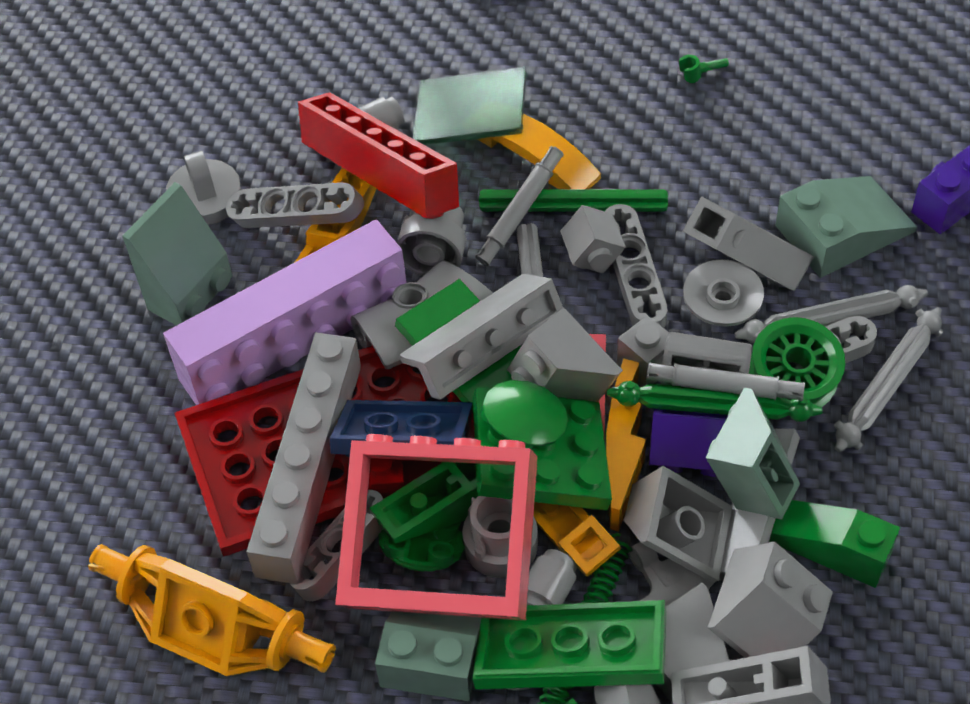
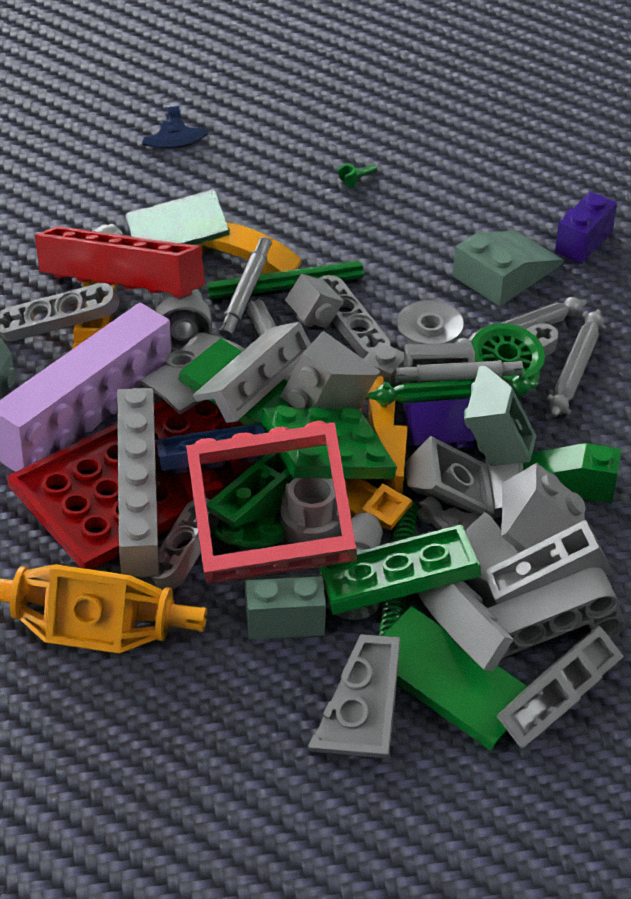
camera: 20 degrees left, 10 degrees down
(524, 413) = (301, 410): green dish -> none
(748, 243) = (429, 281): light grey slope -> none

